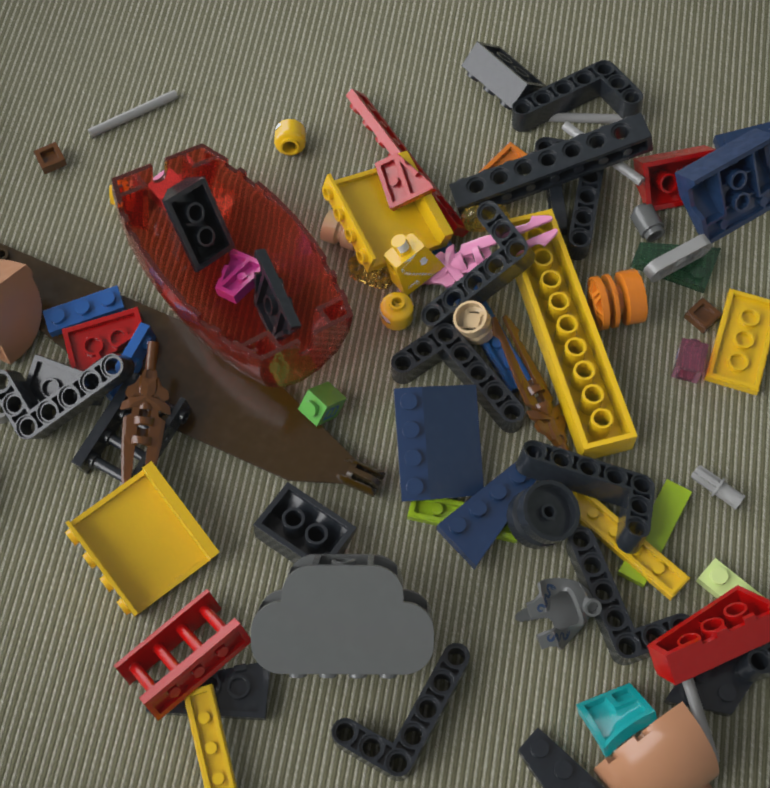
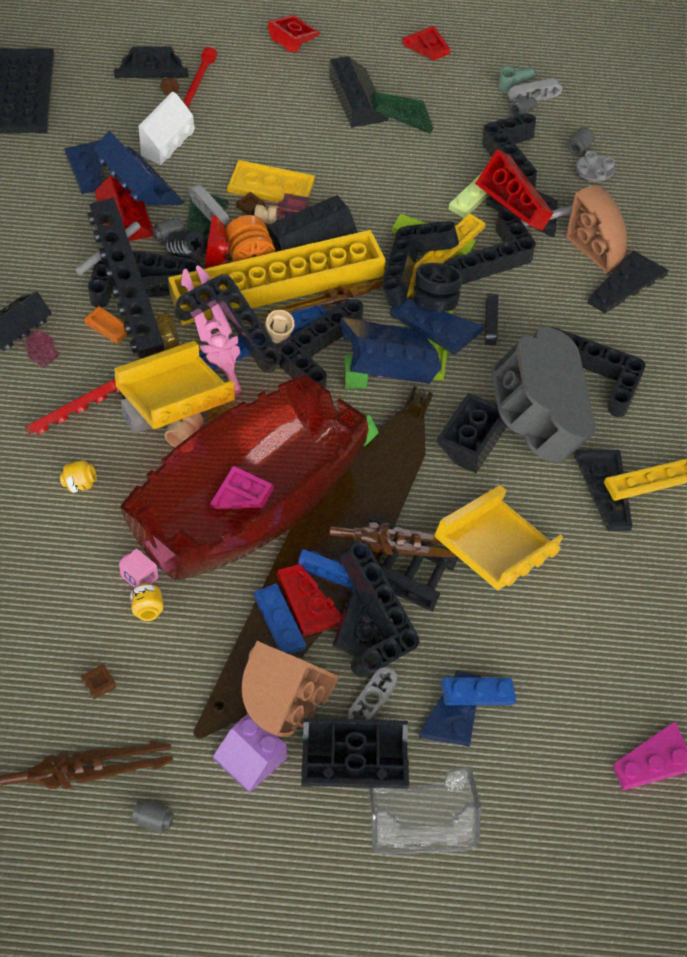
camera: 100 degrees left, 10 degrees down
(132, 113) = (40, 618): light grey bar -> none
(192, 671) = (607, 490): red fence -> none
(197, 221) = (200, 510): black slope -> none
(272, 301) = (279, 451): black wing -> none
(397, 311) = (264, 380): yellow head -> none
(402, 181) = (148, 370): wing -> none
(410, 263) = (226, 366): yellow torso -> none
(463, 101) = (41, 344): none -> clear pink brick
(497, 585) = (491, 319): none -> black beam
(566, 605) = (502, 279): dark grey piece -> none
(575, 90) = (23, 255): black beam -> none
(586, 118) = (57, 261): light grey bar -> none
(611, 258) = (217, 244): none -> red slope
(613, 232) = (186, 244): none -> black piece
(616, 716) = (574, 251): teal plate -> none
(652, 380) = (312, 225): none -> black slope
(677, 326) = (268, 215): none -> tan wheel
(717, 486) = (395, 200): light grey axle -> none

